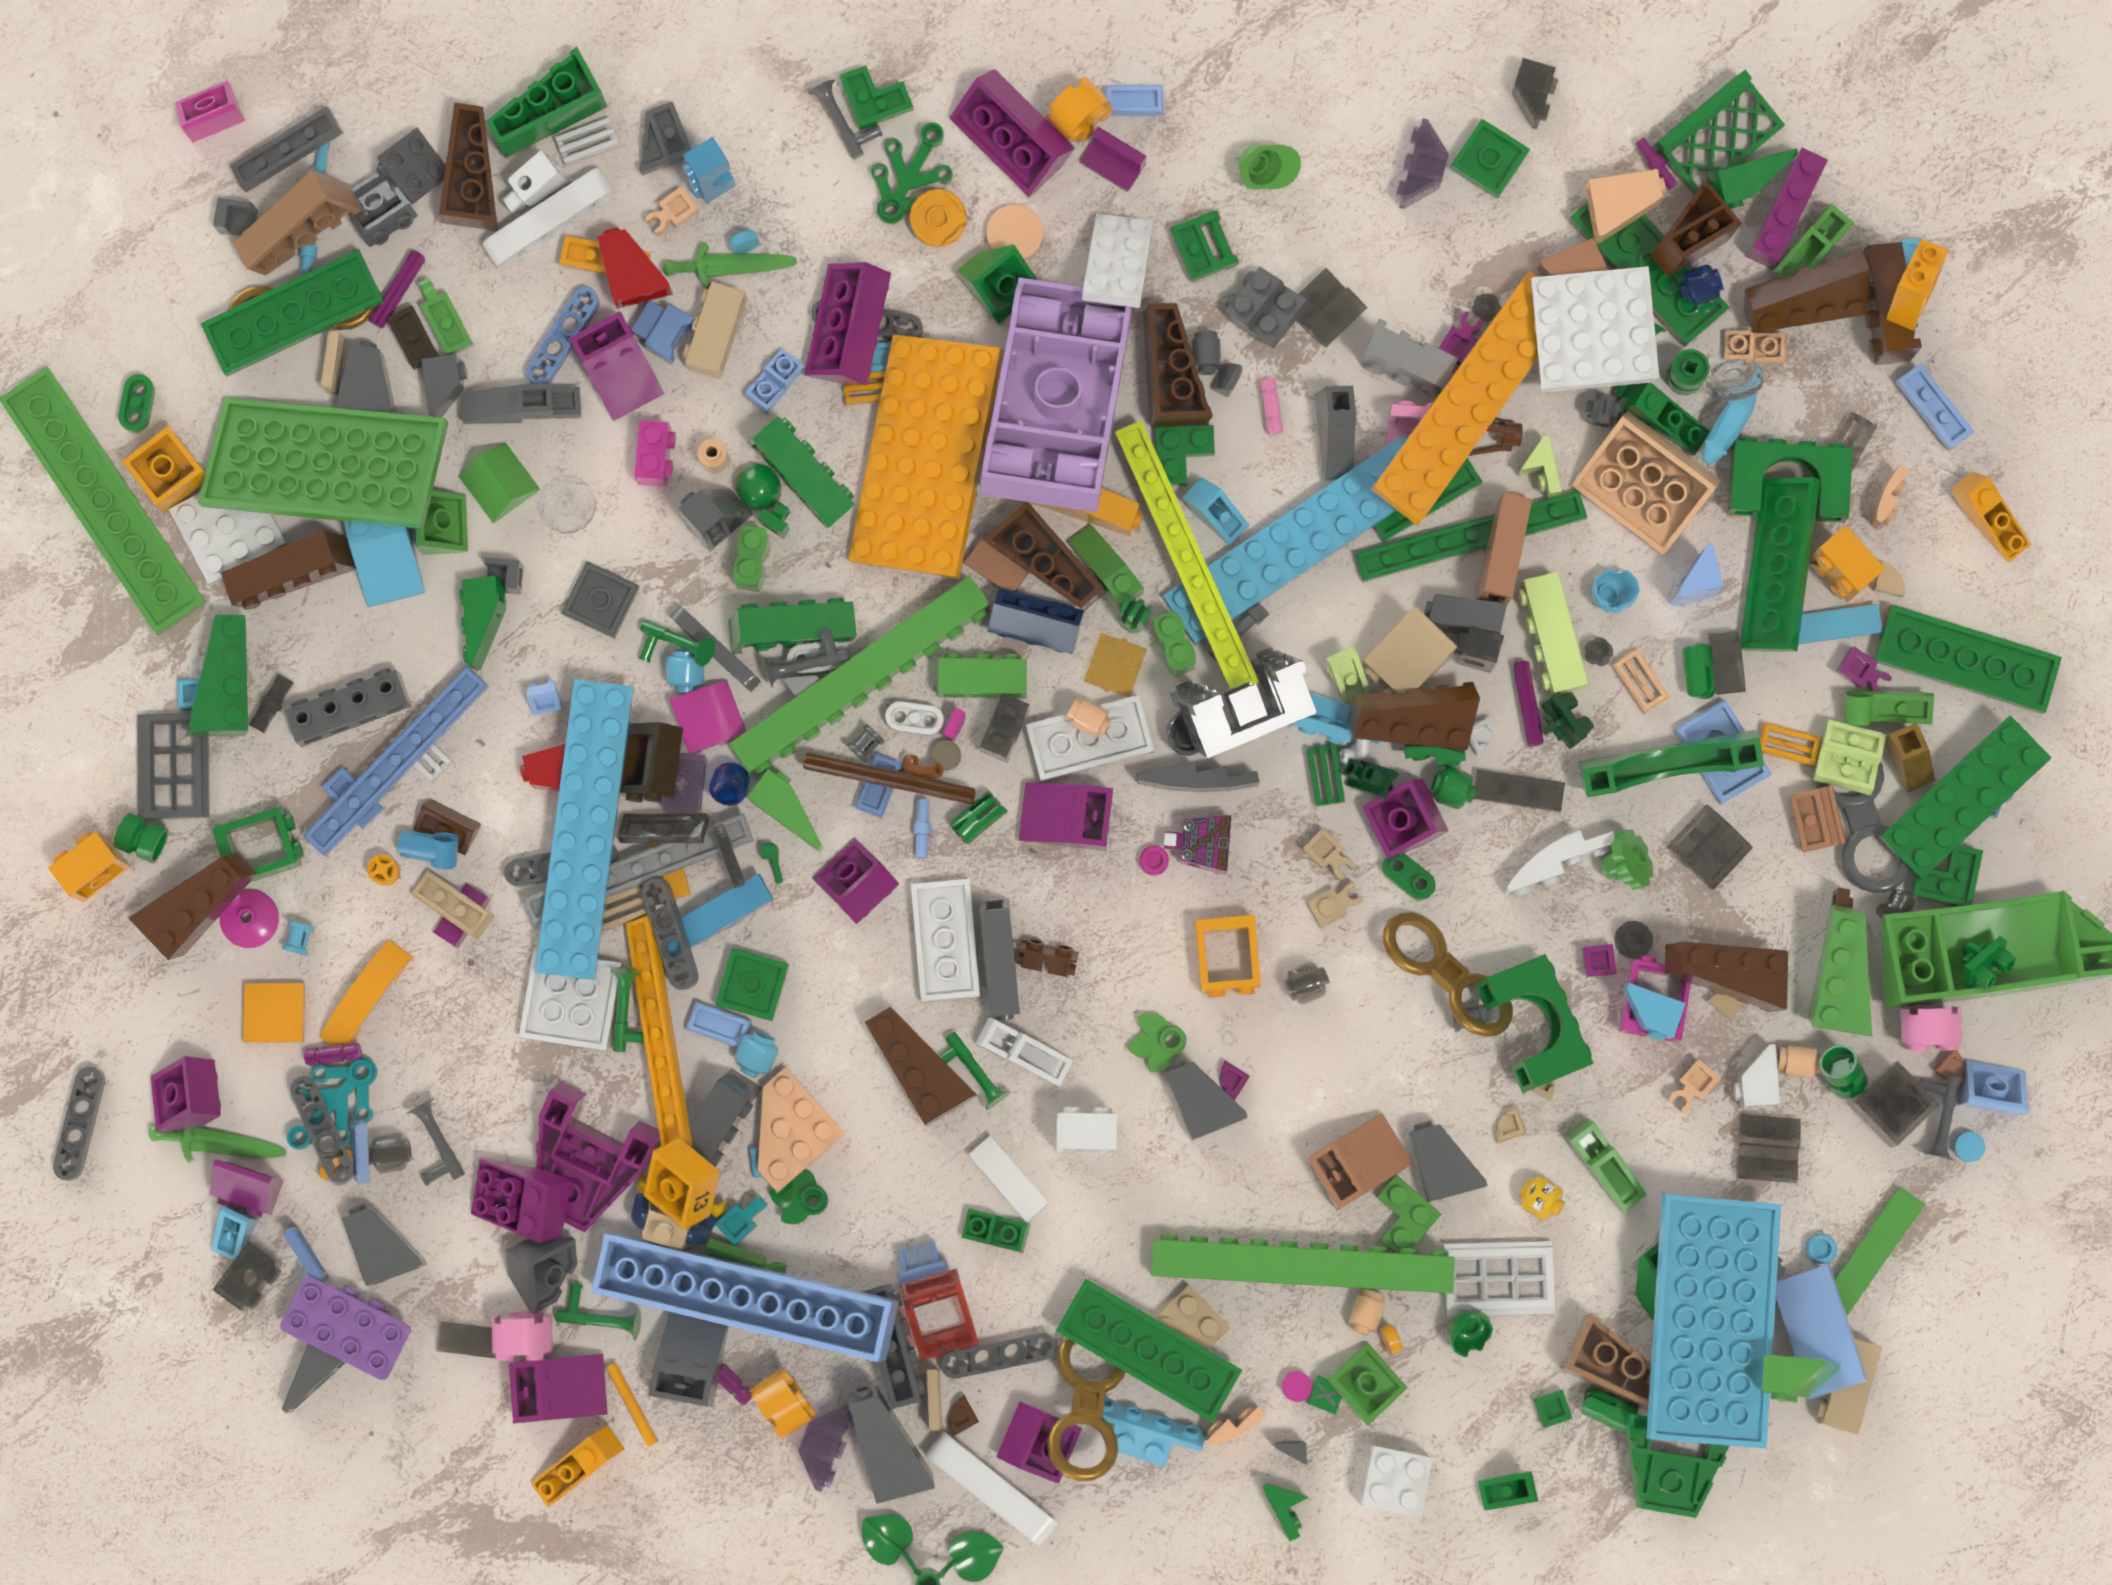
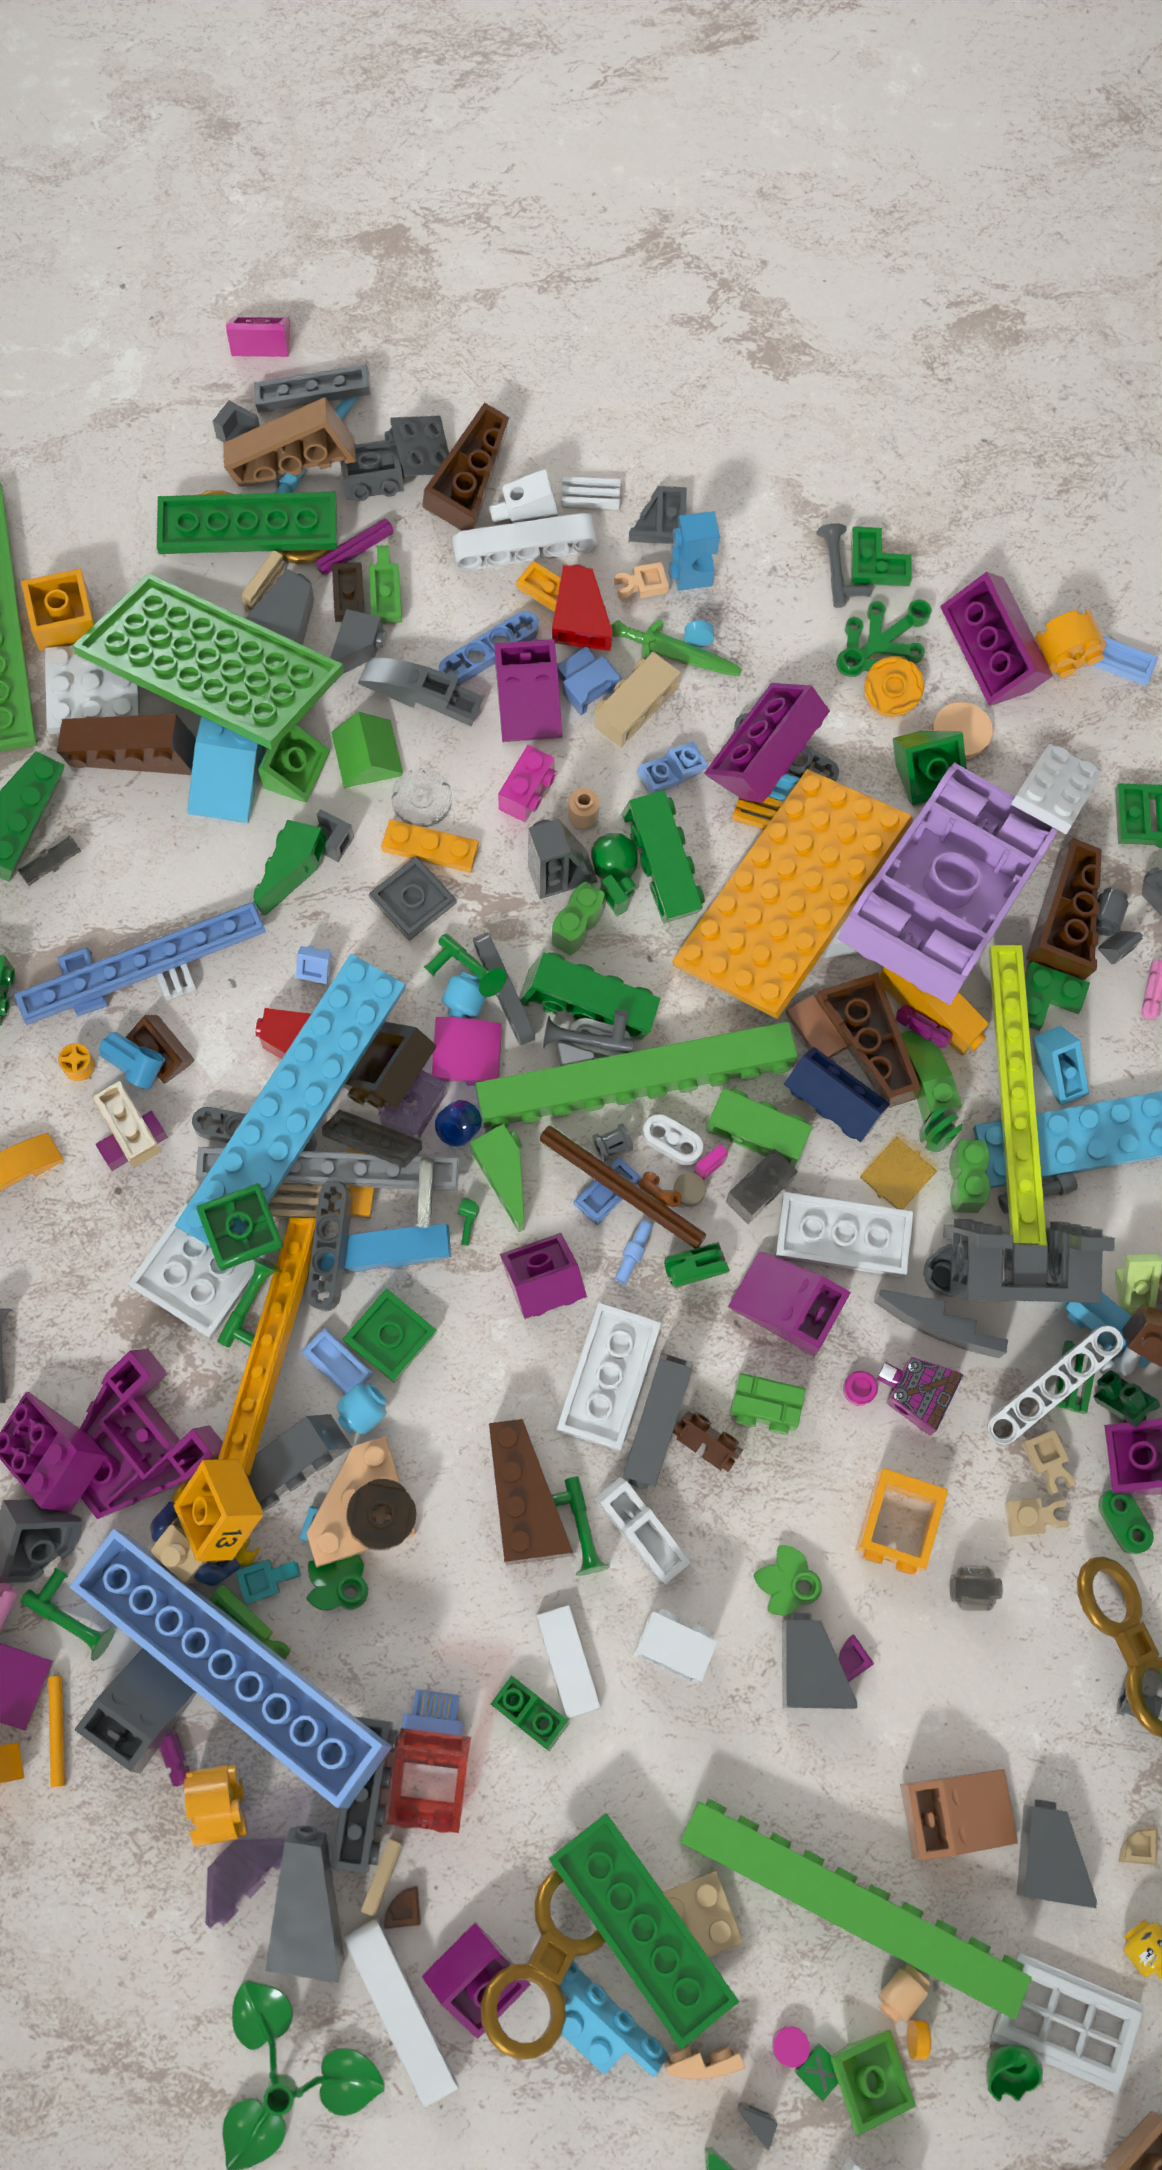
camera: 15 degrees right, 10 degrees down
(135, 404) = (62, 546): green plate -> none
(348, 707) = (119, 894): dark grey brick -> none
(548, 106) = (568, 445): green wedge -> none
(591, 972) = (220, 1216): none -> green brick
(594, 545) = (430, 845): none -> light orange plate
(820, 1116) = (368, 1499): none -> dark brown plate
(998, 1353) = (472, 1864): dark grey beam -> none
(1082, 907) = (767, 1403): none -> bright green brick
(1086, 527) = (923, 1026): none -> magenta axle
(1088, 717) = (853, 1211): light nougat brick -> none
(1113, 159) = (1086, 702): magenta panel -> none
(1300, 805) = (1071, 1380): none -> white beam
(1413, 1211) = (997, 1900): bright green plate -> none

